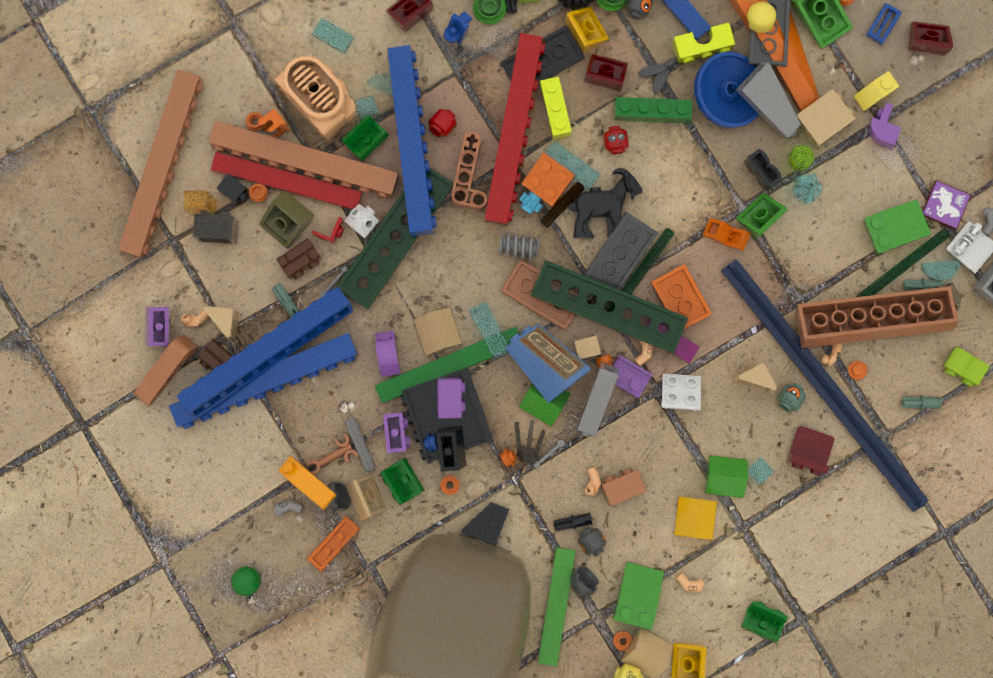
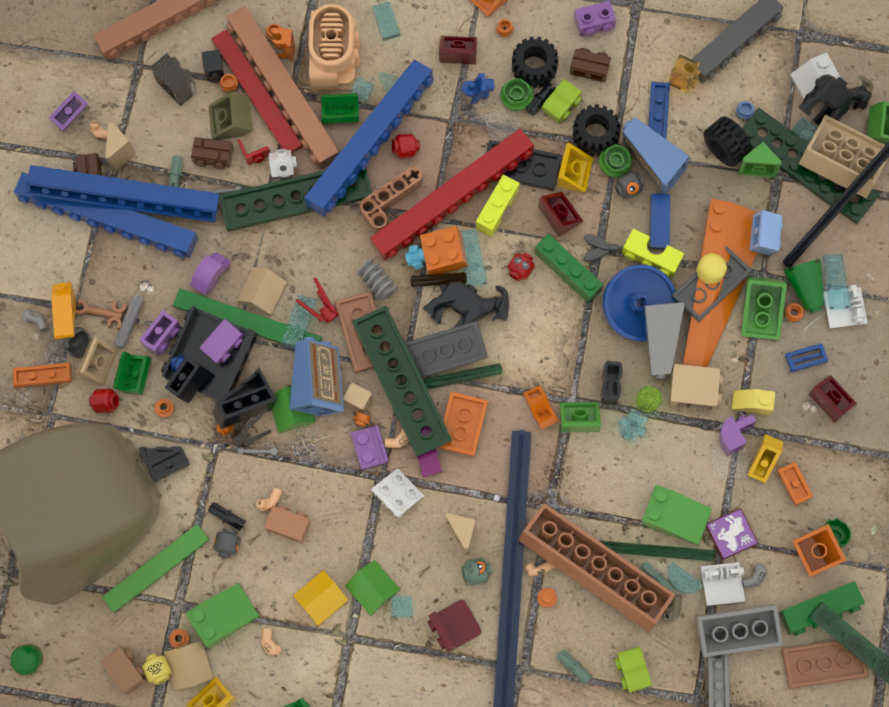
camera: 45 degrees right, 10 degrees down
(165, 368) = (46, 144): nougat beam -> none
(198, 201) = (181, 49): clear yellow brick -> none
(400, 520) = (104, 401): none -> red head
(504, 303) = (328, 312): none -> red plant
(509, 425) = (245, 401): none -> black wedge
(584, 581) = (192, 566): dark grey hair -> none
(598, 399) = (329, 439): light grey slope -> none
(922, 126) = (765, 458): none -> yellow slope
(958, 126) = (795, 483): none -> orange plate

